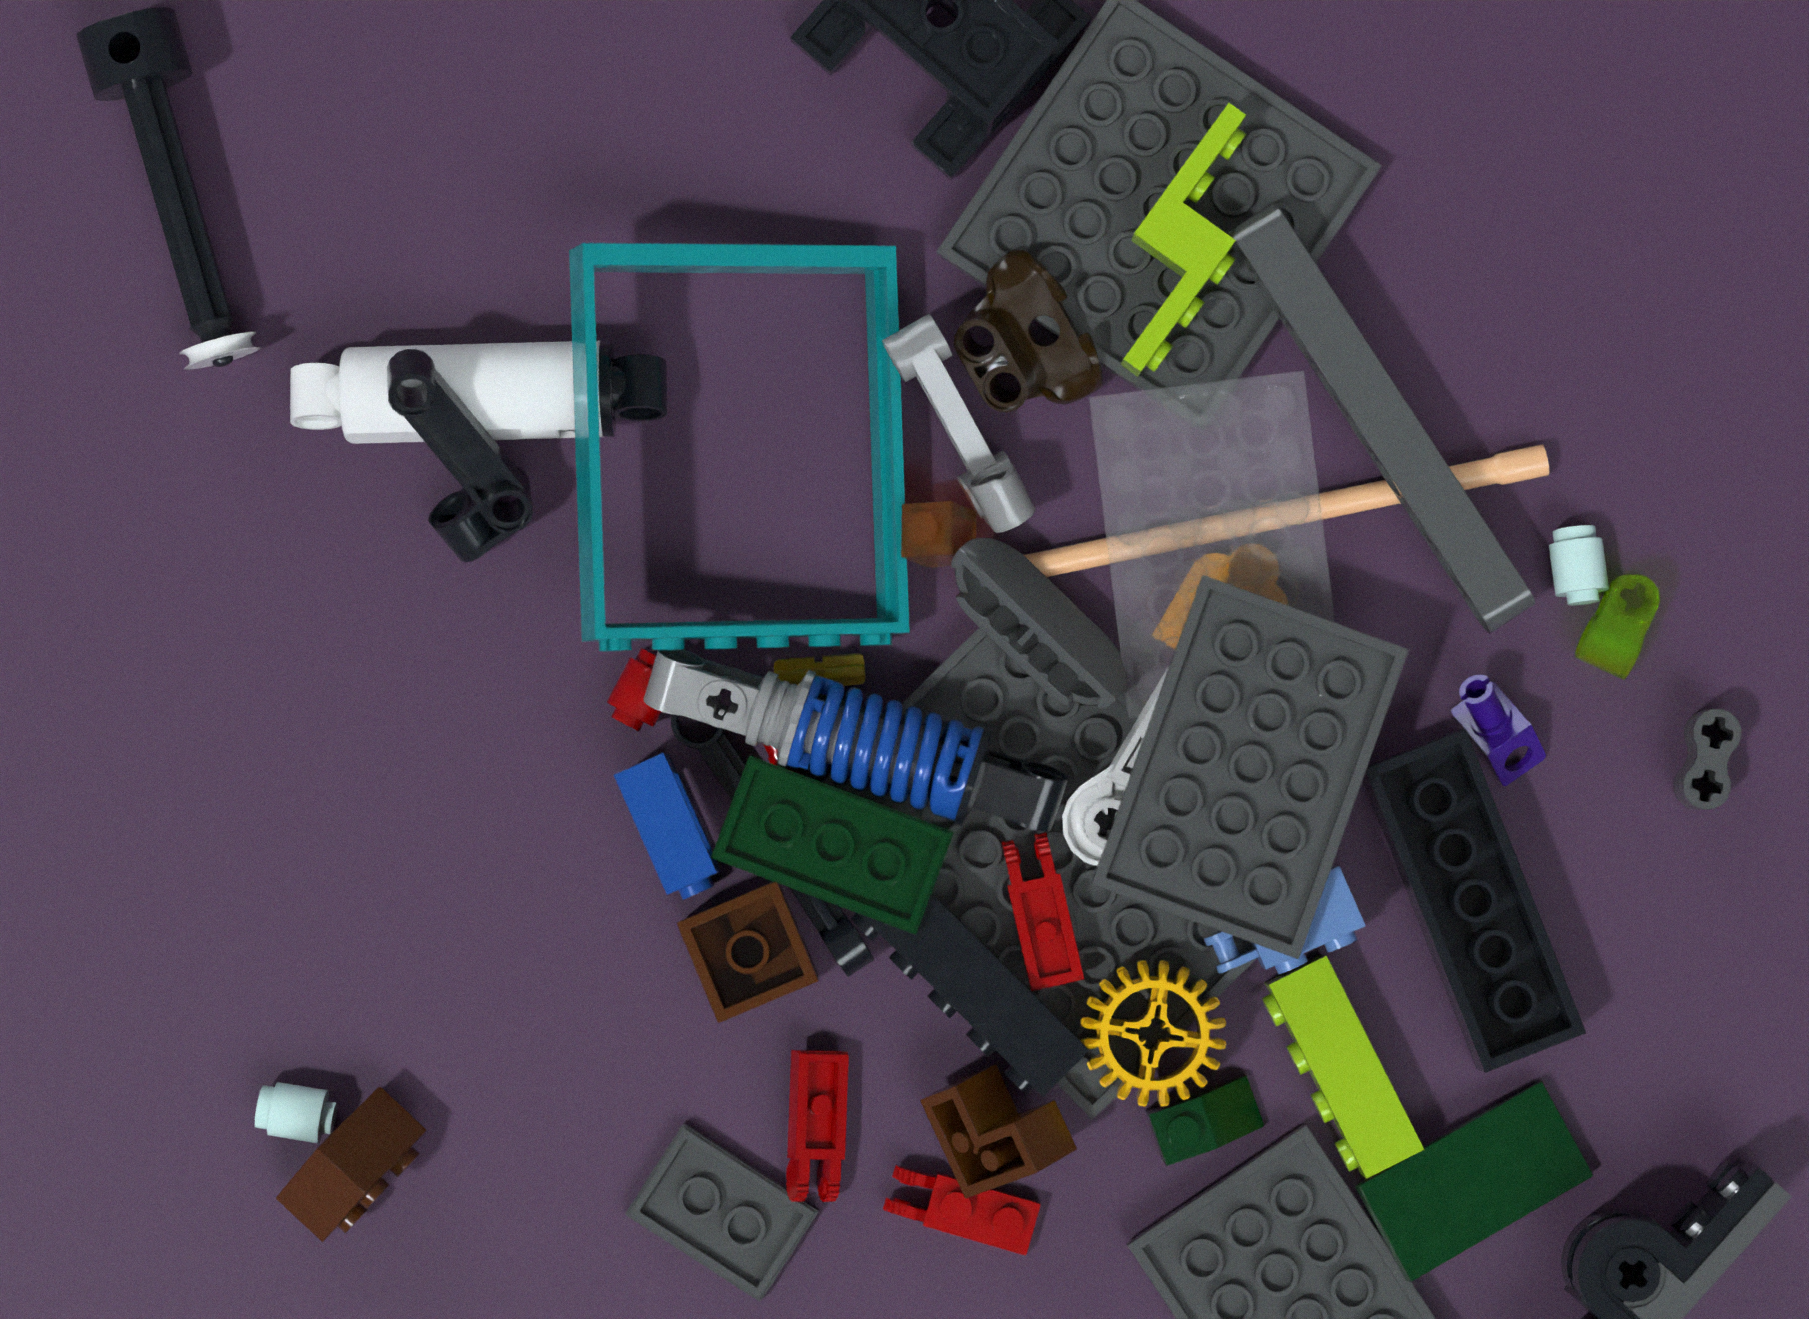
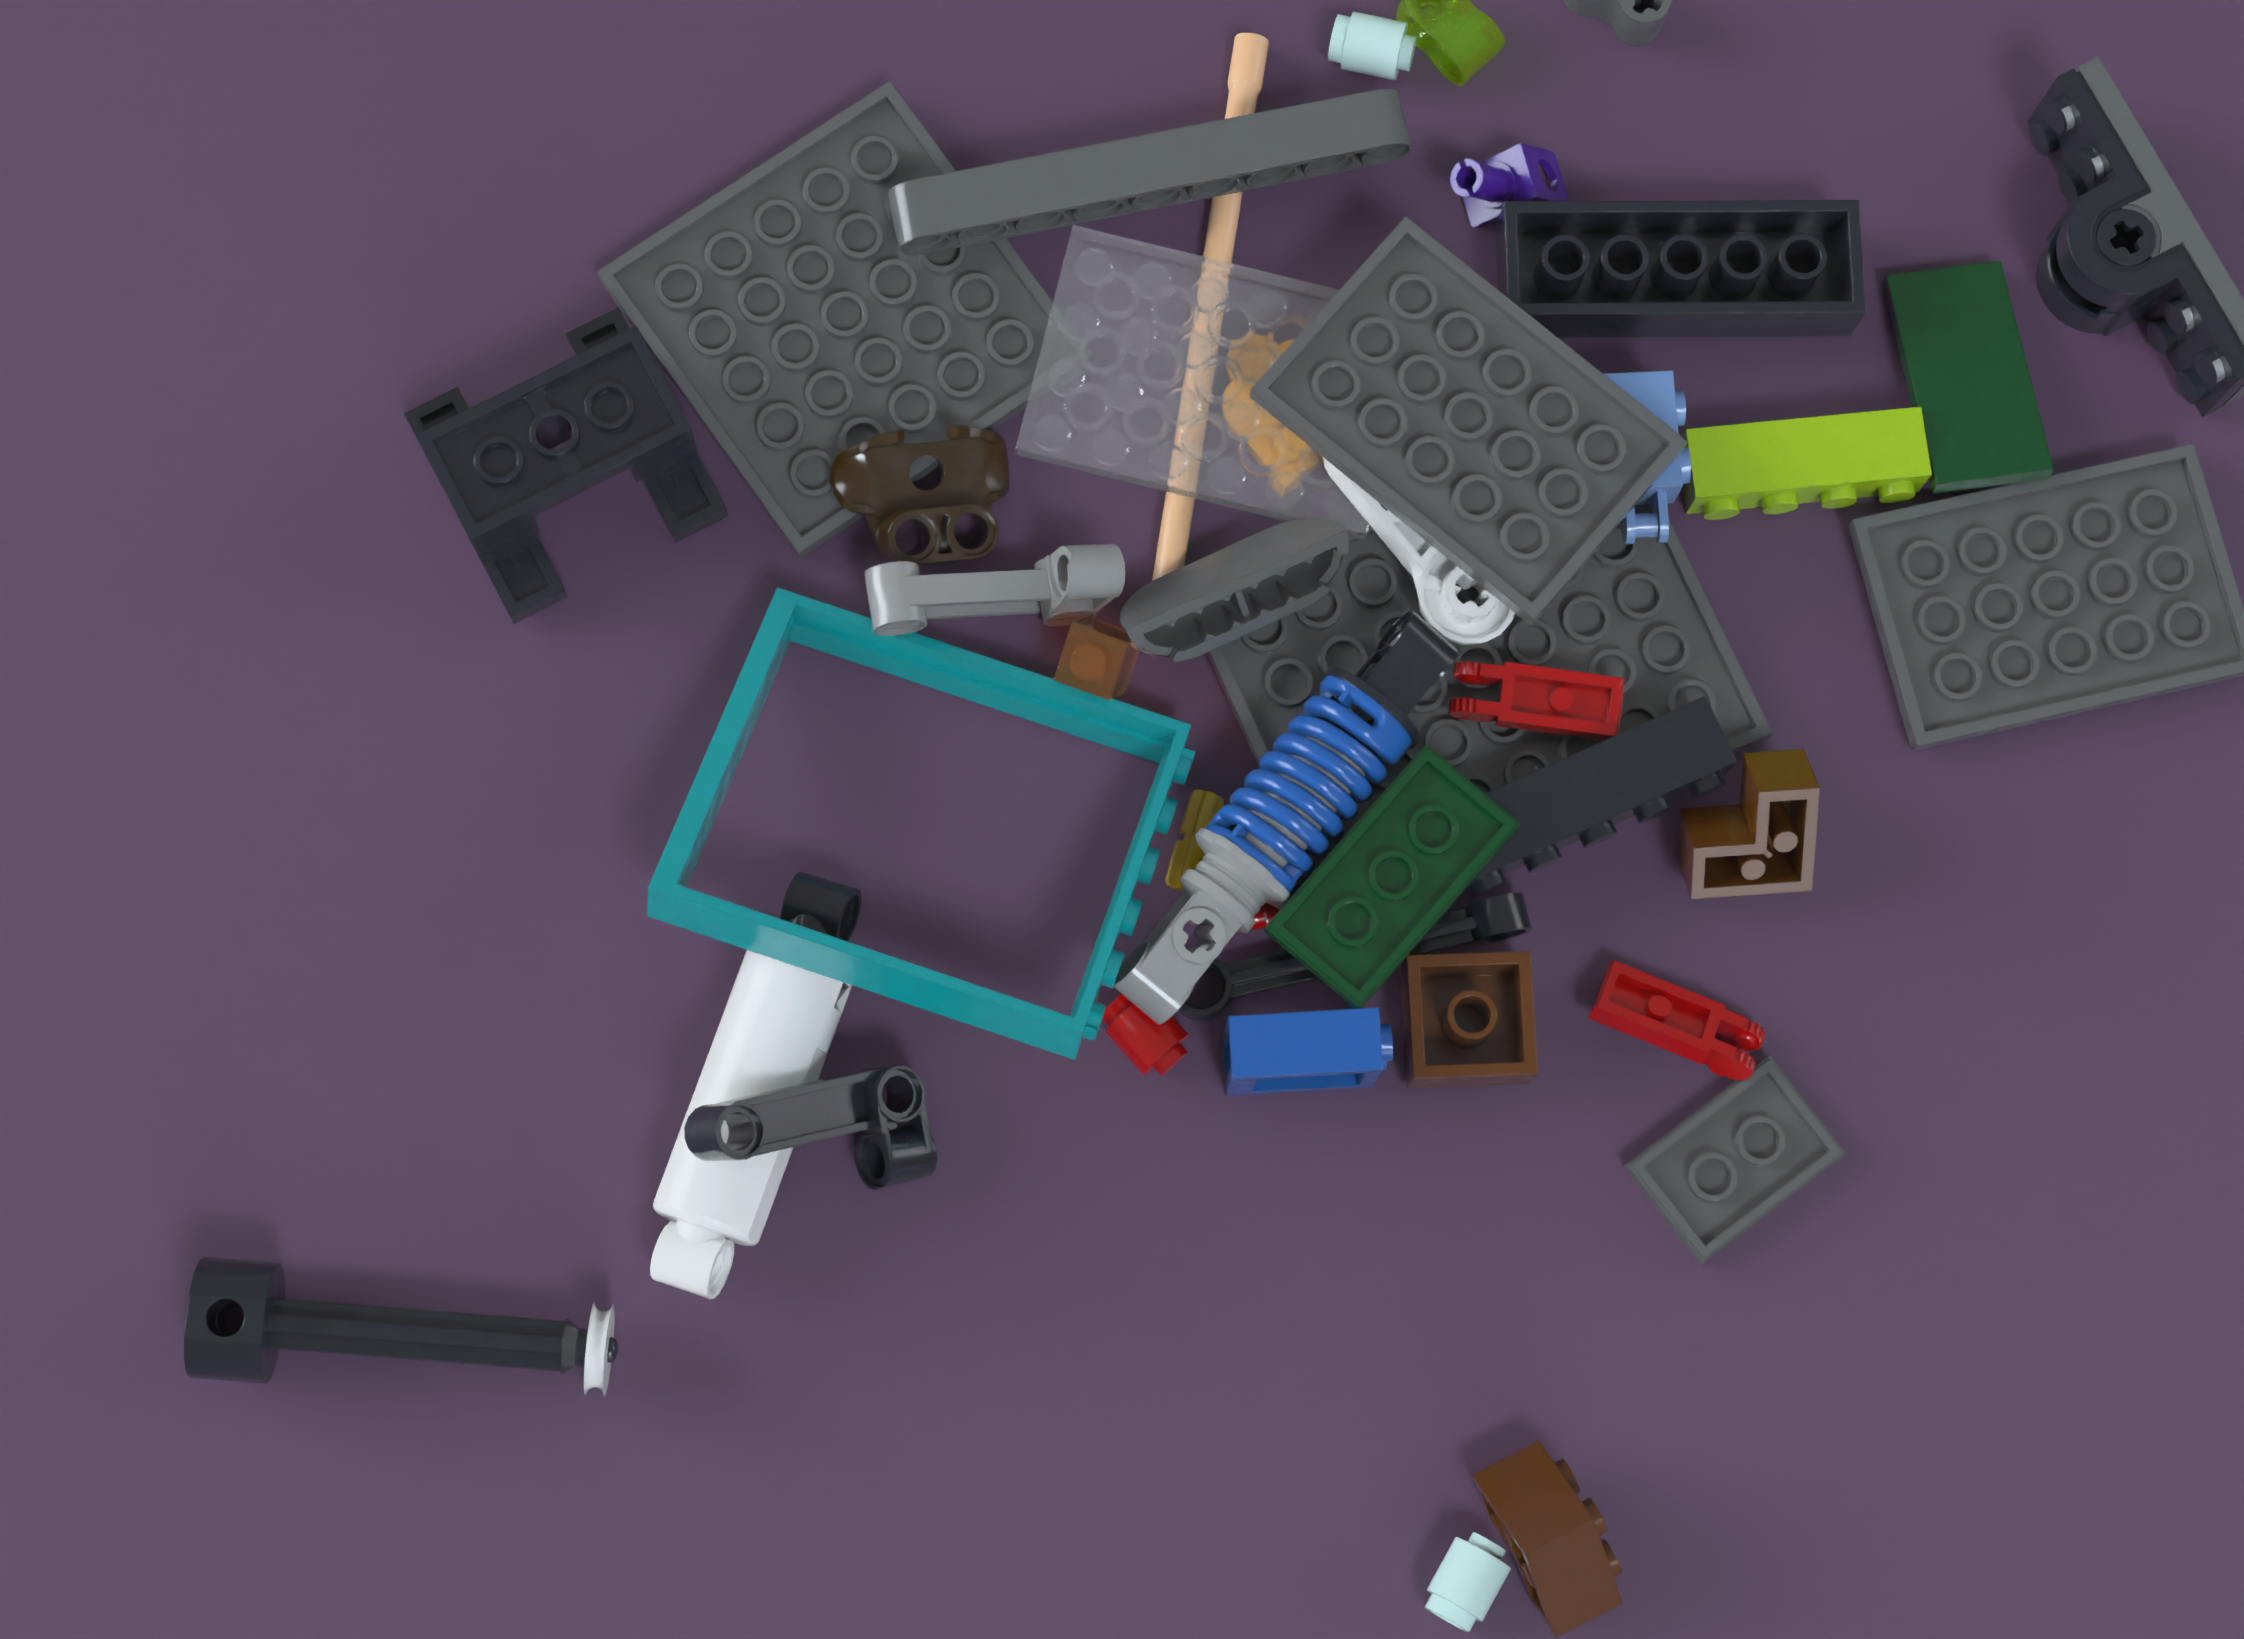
camera: 75 degrees left, 10 degrees down
(988, 1217) = (1841, 877): red hinge -> none
(1146, 1076) = (1726, 638): yellow gear -> none
(1185, 241) = (892, 294): lime bracket -> none
(1204, 1120) = (1811, 625): dark green slope -> none

